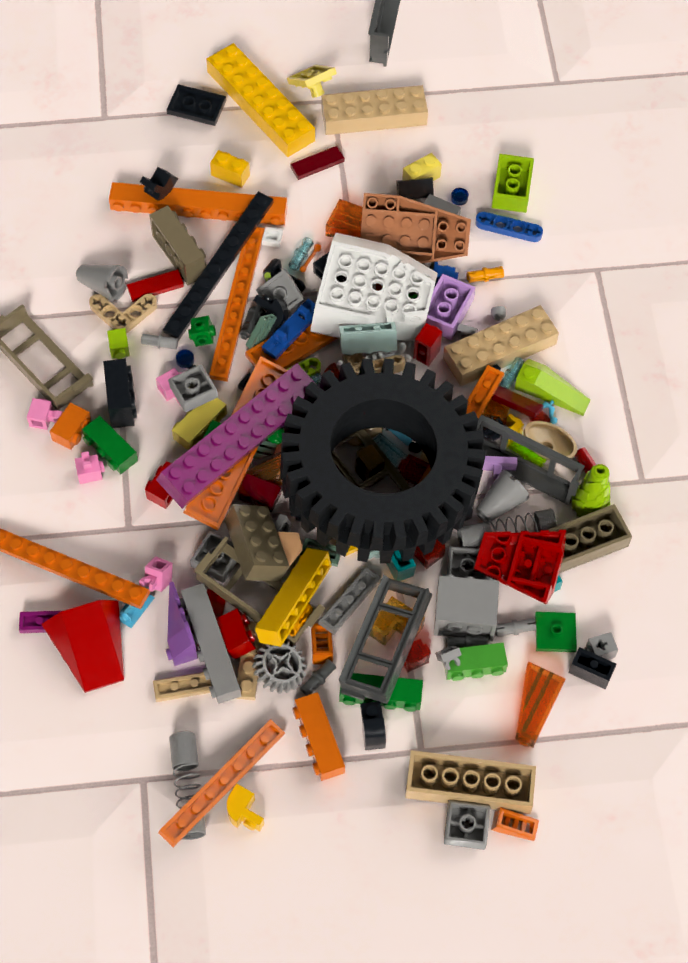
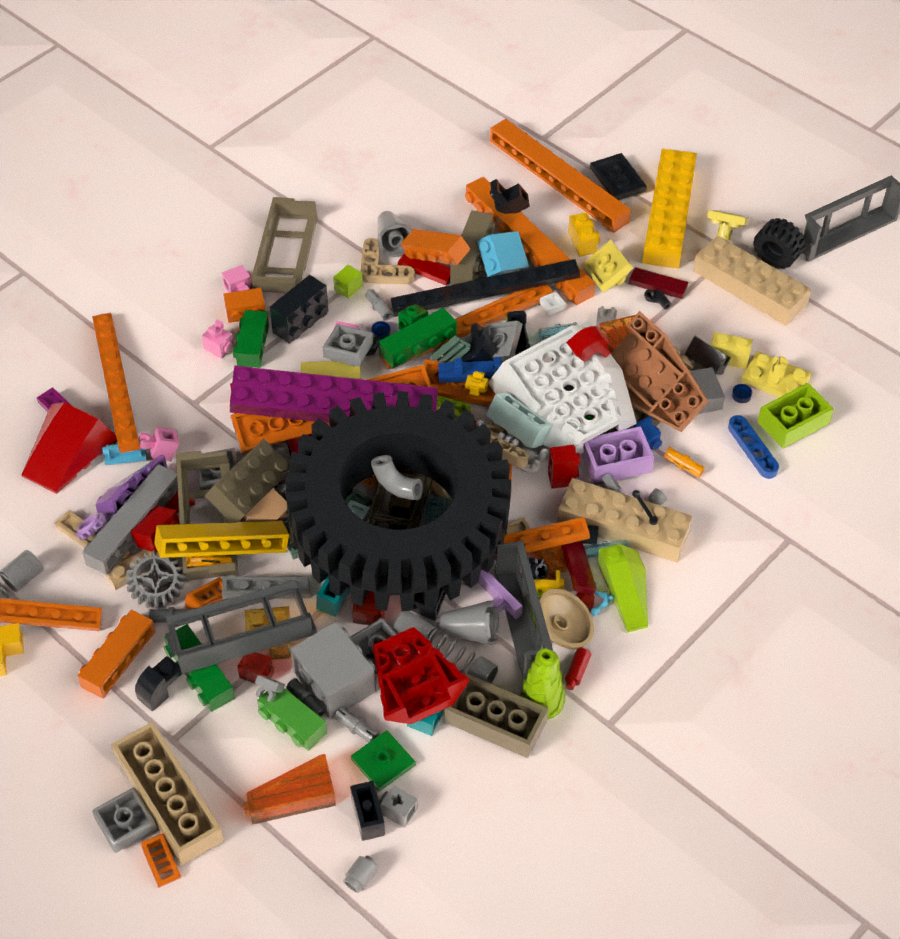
camera: 50 degrees right, 10 degrees down
(154, 136) = (560, 175): none -> orange brick
(160, 264) = (435, 246): none -> orange brick
(187, 669) = (90, 526): none -> lavender gear
(206, 229) = (502, 253): none -> medium azure brick
(227, 340) = (418, 337): none -> green brick
(281, 178) = (608, 267): none -> light yellow plate
(306, 337) = (476, 383): none -> yellow gear
(316, 217) = (605, 315): none -> light grey tile
(330, 173) = (657, 296): none -> black arm
(363, 243) = (588, 342): none -> red brick
(366, 68) = (779, 243): none -> black tyre
(372, 449) = (394, 481): none -> light grey cylinder
(466, 167) = (774, 375): none -> light yellow plate
(526, 329) = (652, 519): none -> black hinge
(631, 707) = (361, 873): none -> light grey brick

